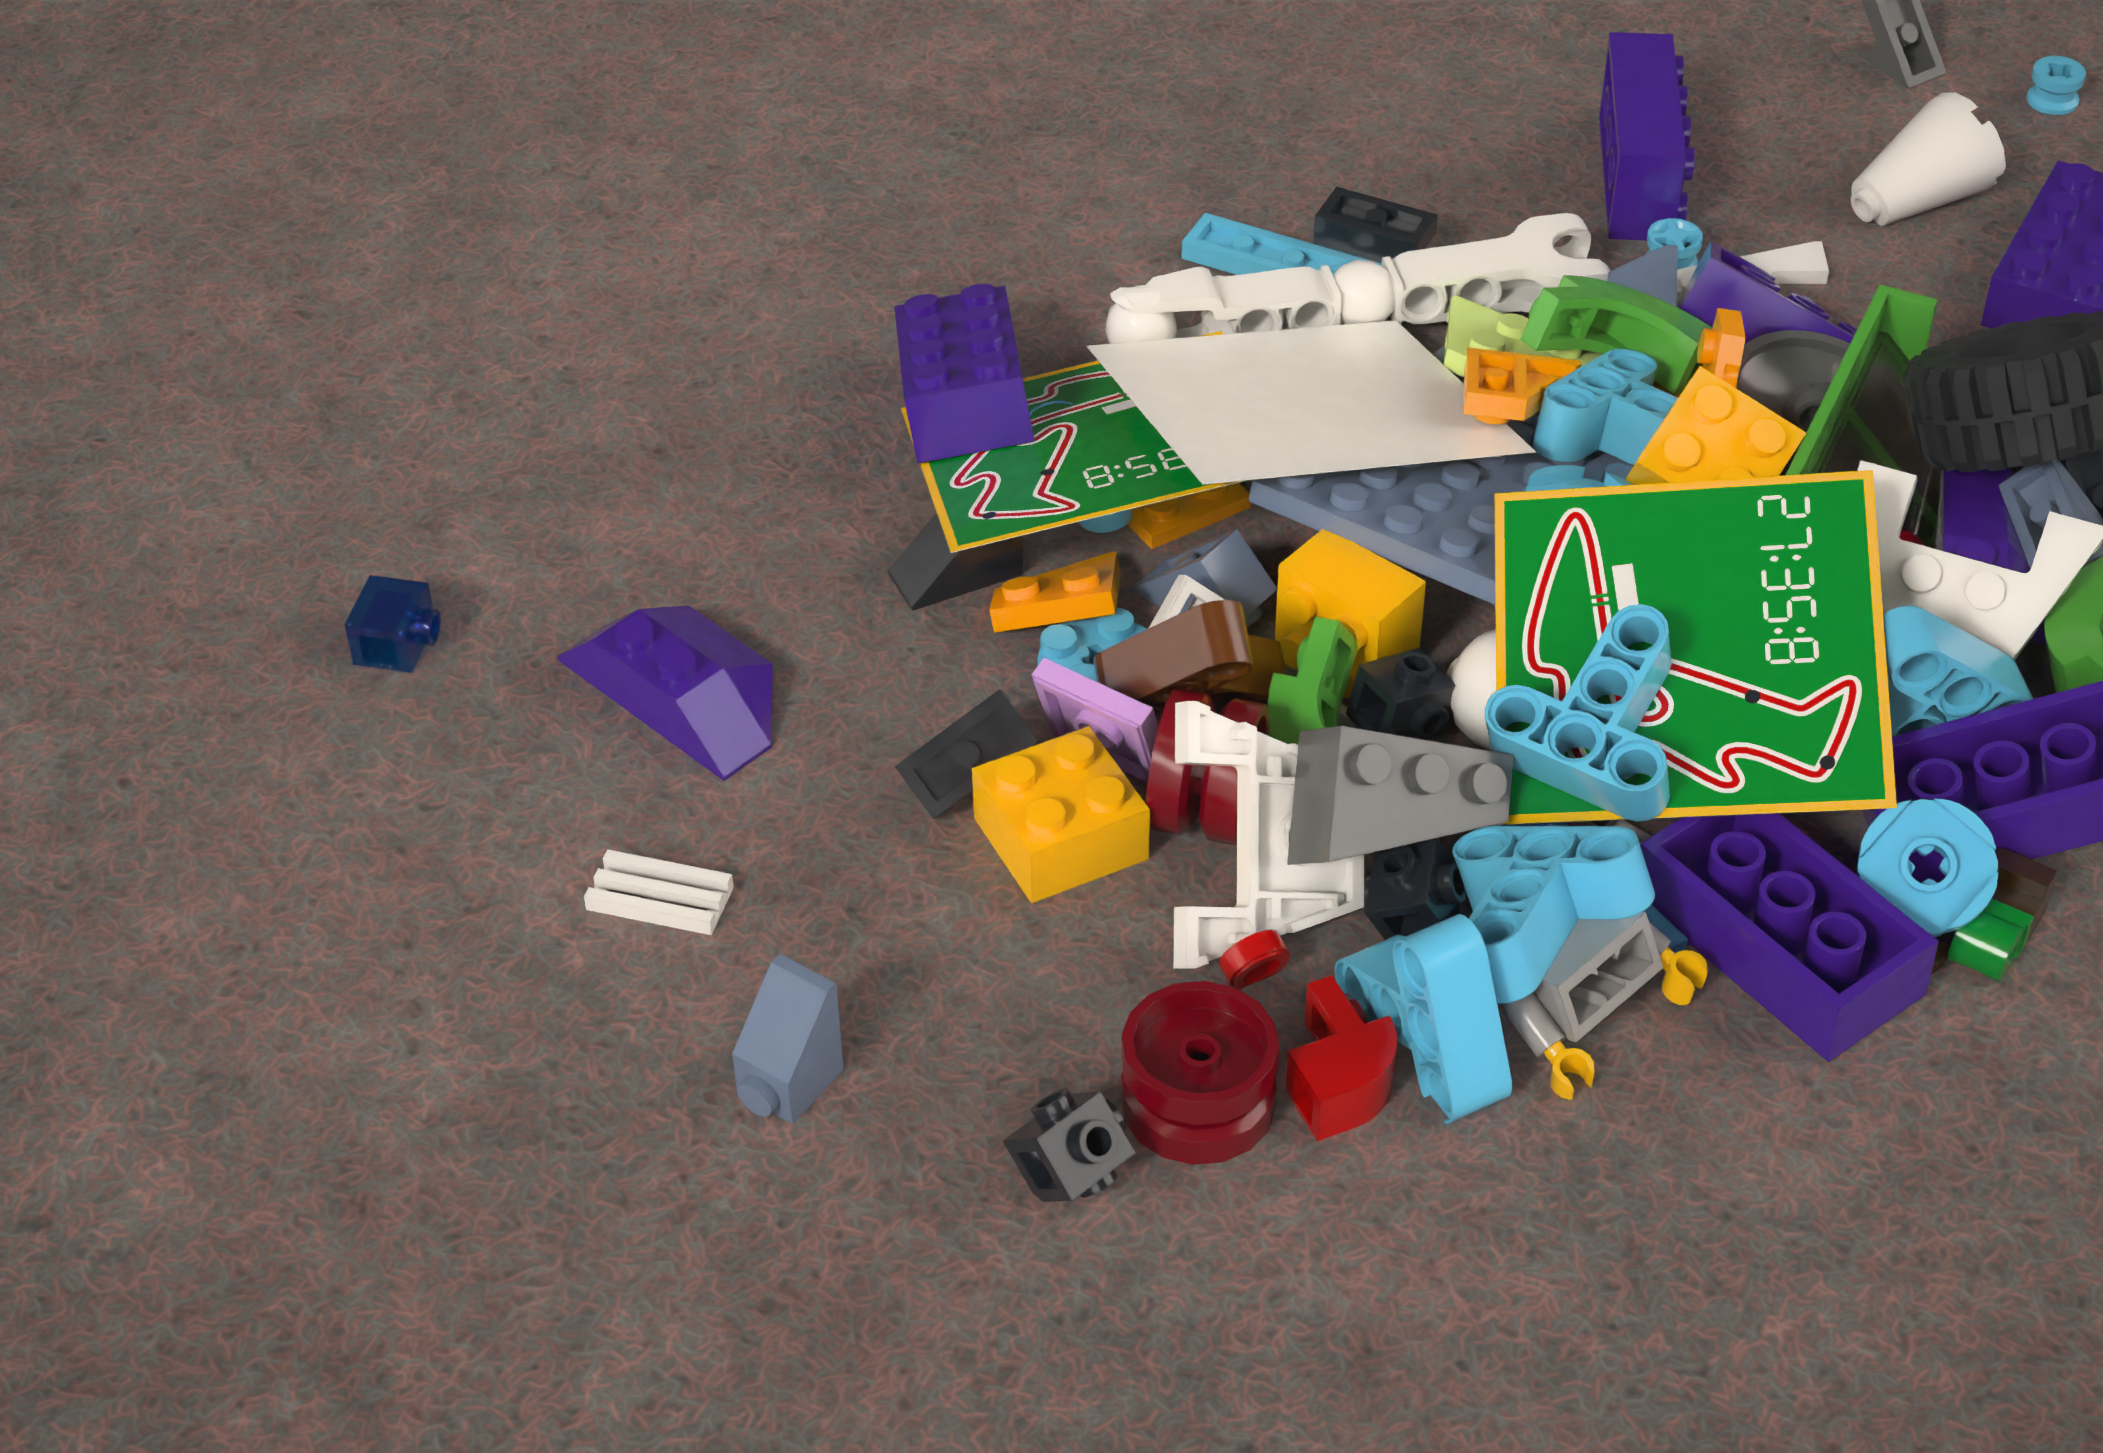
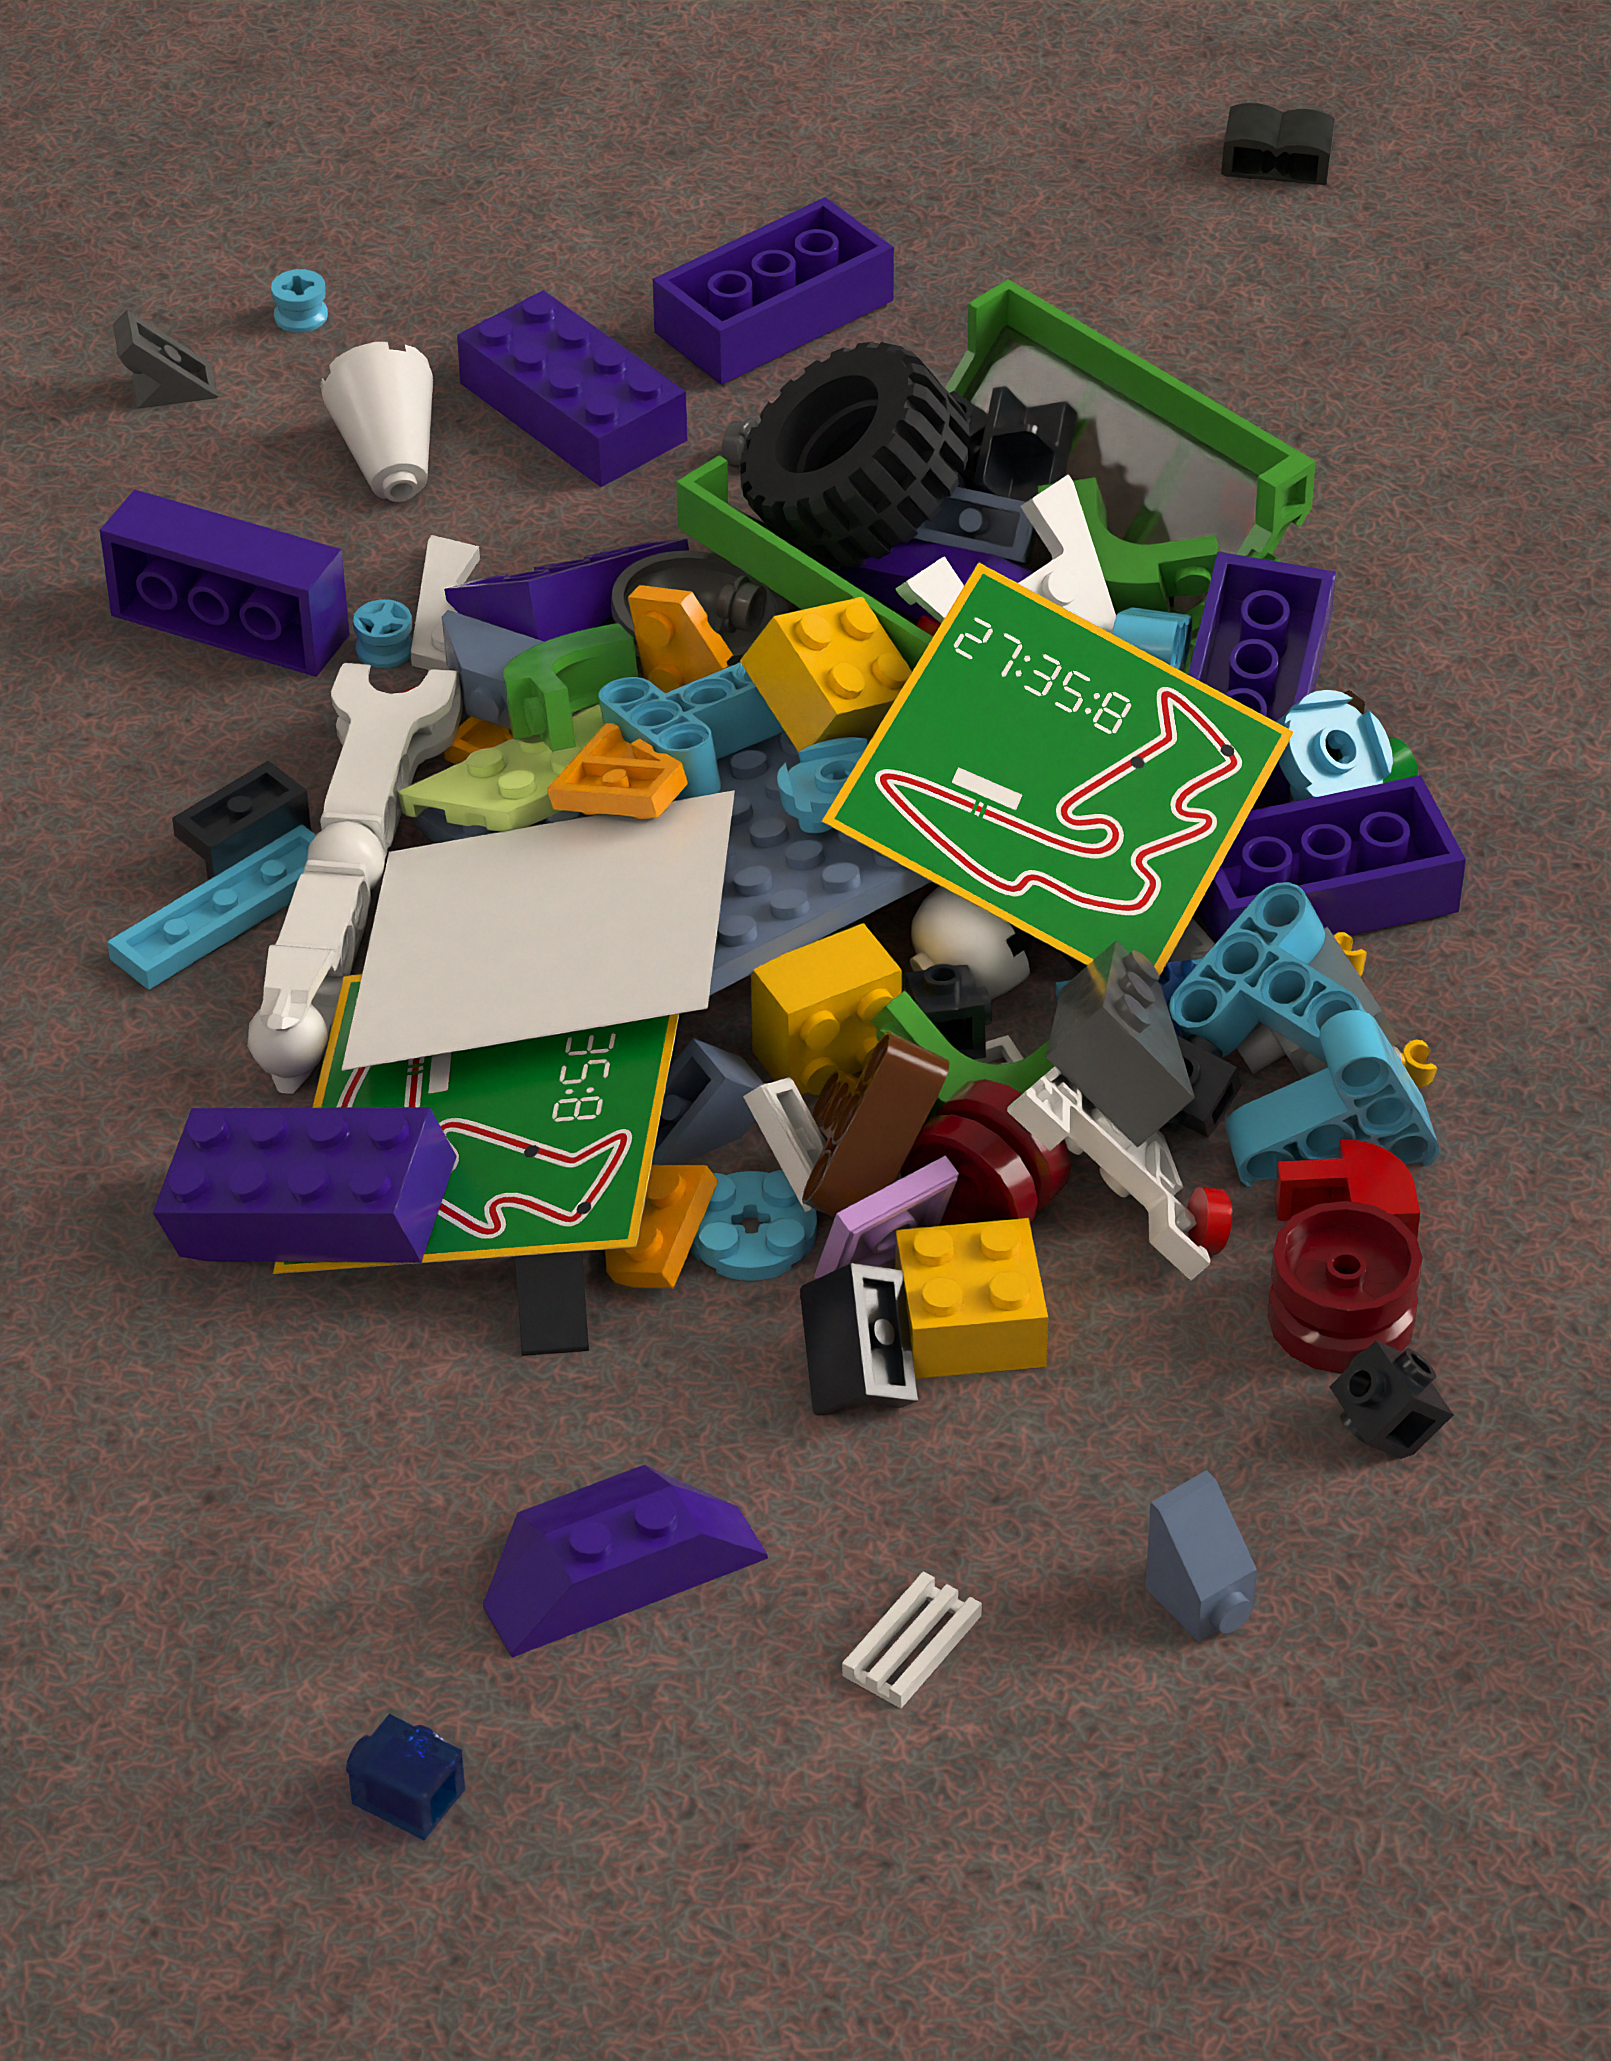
camera: 70 degrees left, 0 degrees up
(1595, 726) = (1129, 867): medium azure beam -> none

